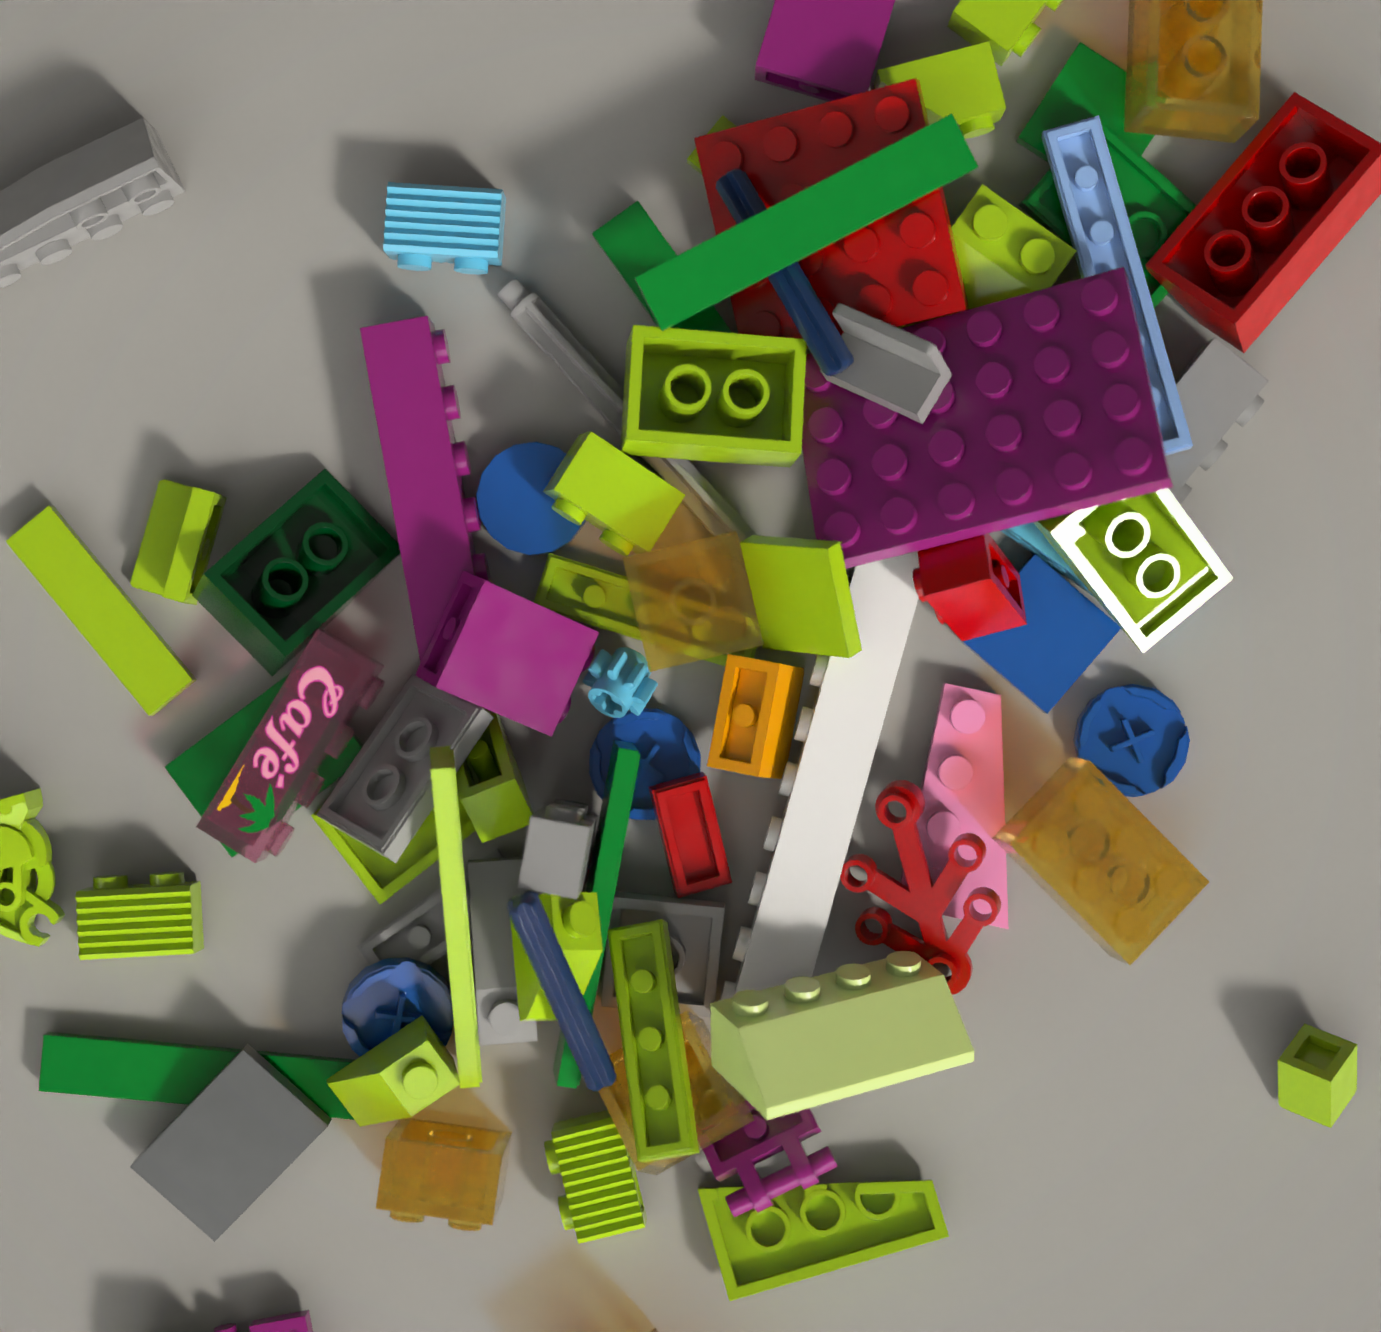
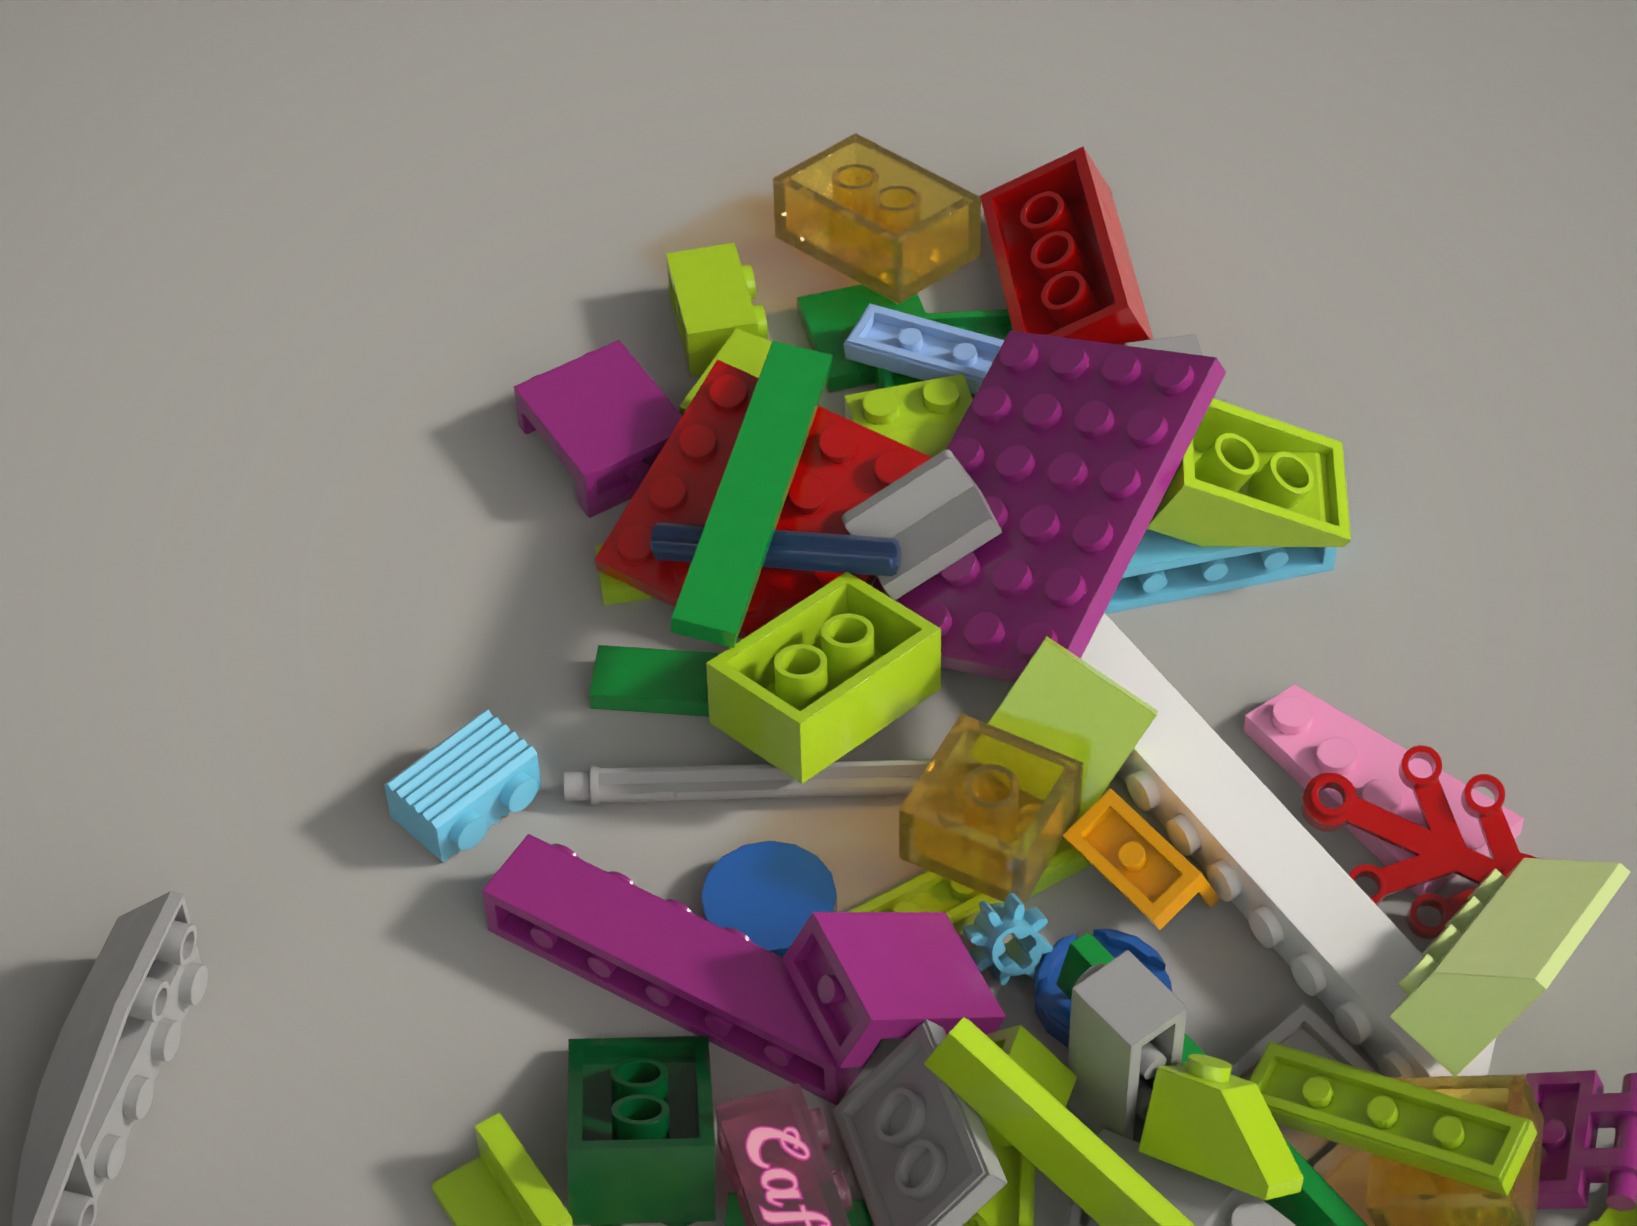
camera: 45 degrees left, 40 degrees down
(561, 990) = (1269, 1116): dark blue axle -> none
(612, 495) = (828, 817): lime brick -> none
(690, 834) = (1214, 992): red tile -> none
(971, 587) = (1176, 611): red brick -> none
(1055, 645) = (1265, 630): blue tile -> none
(1101, 860) = (1517, 696): clear yellow brick -> none
(1133, 738) = (1424, 632): blue tile -> none

